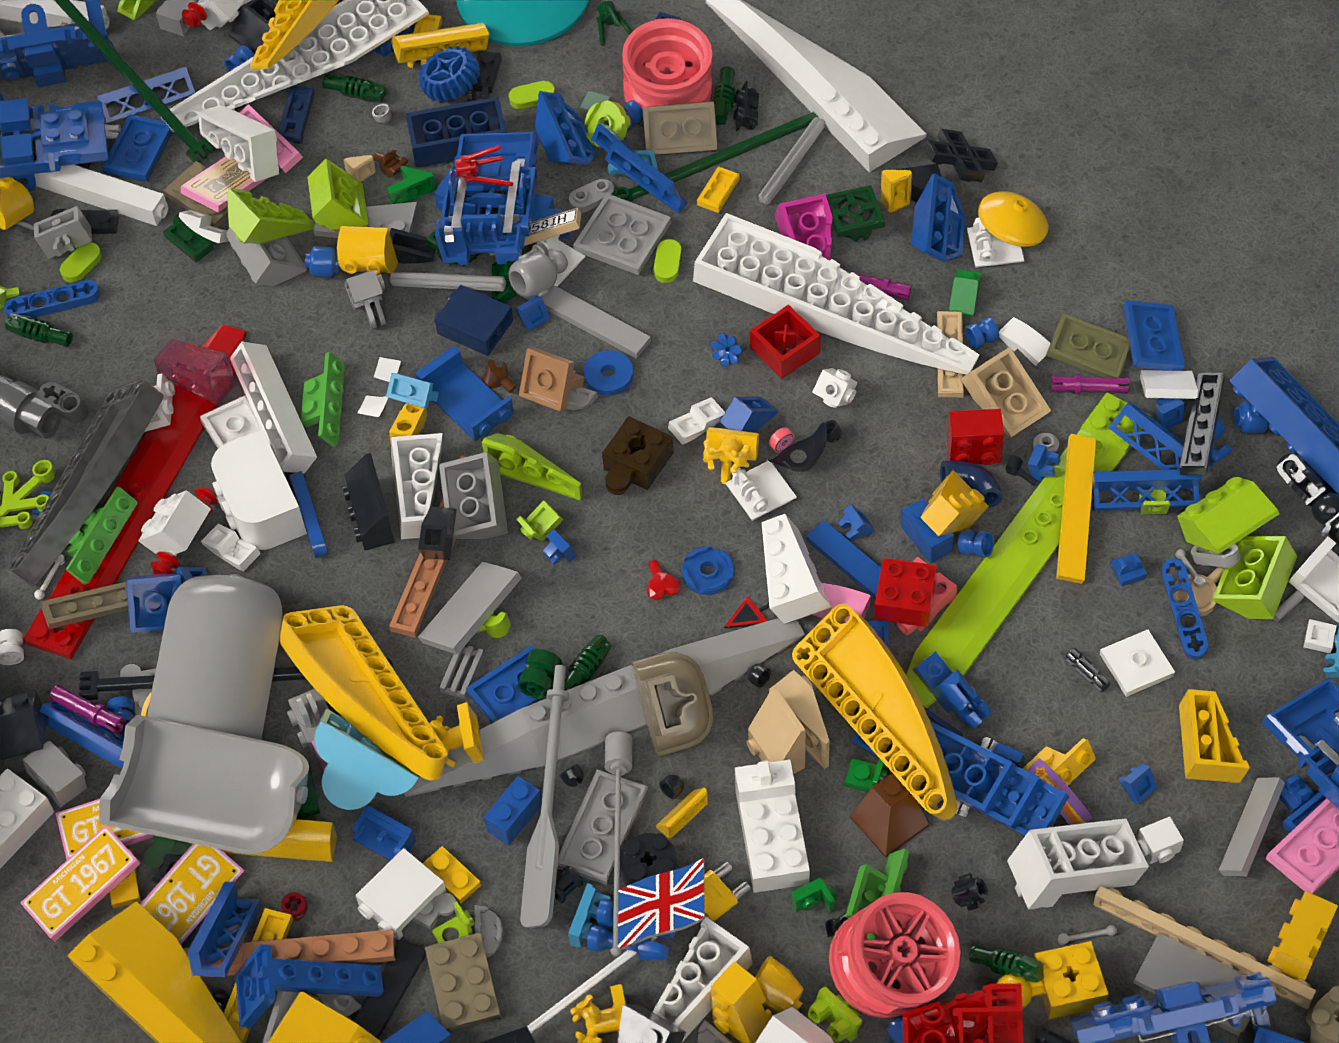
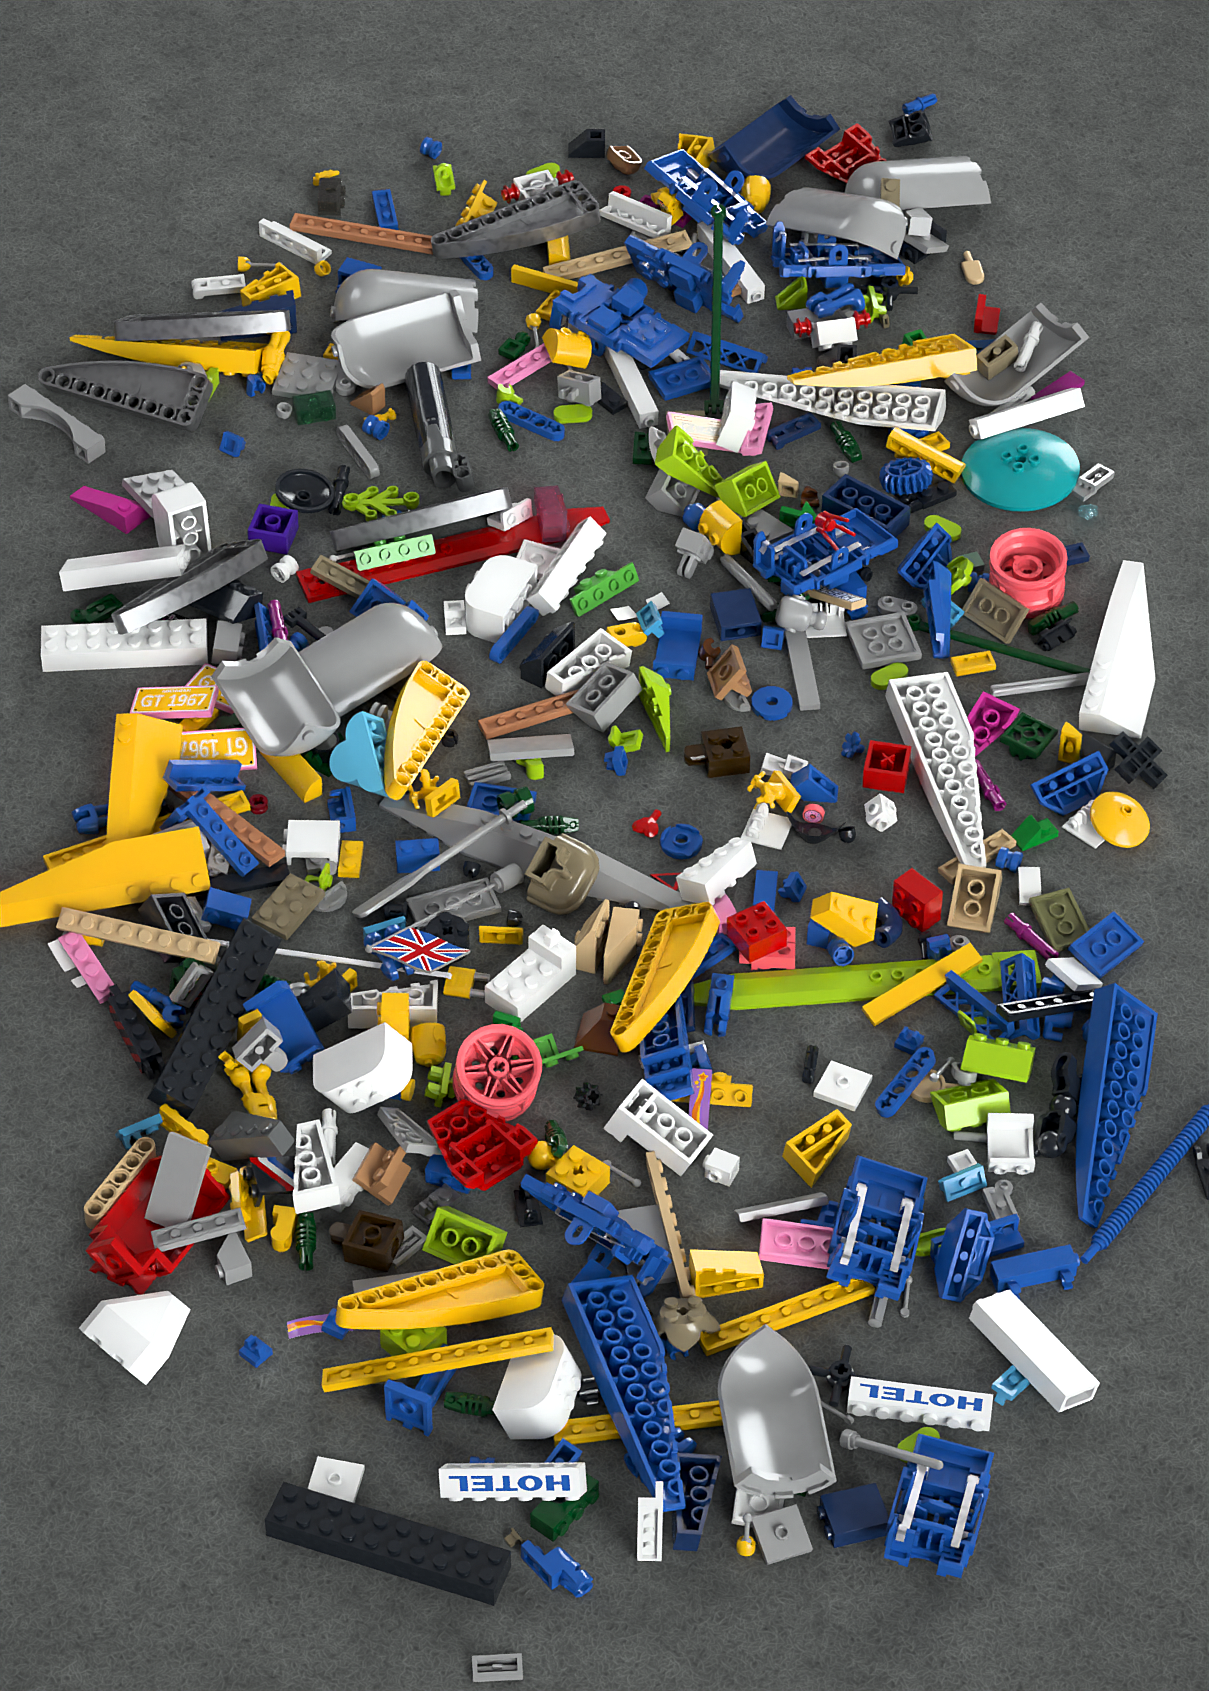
camera: 45 degrees right, 10 degrees down
(175, 526) = (435, 577): white brick -> none
(437, 533) = (557, 693): black slope -> none
(609, 15) = (1050, 521): dark green plant -> none
(1139, 783) = (752, 1134): blue tile -> none

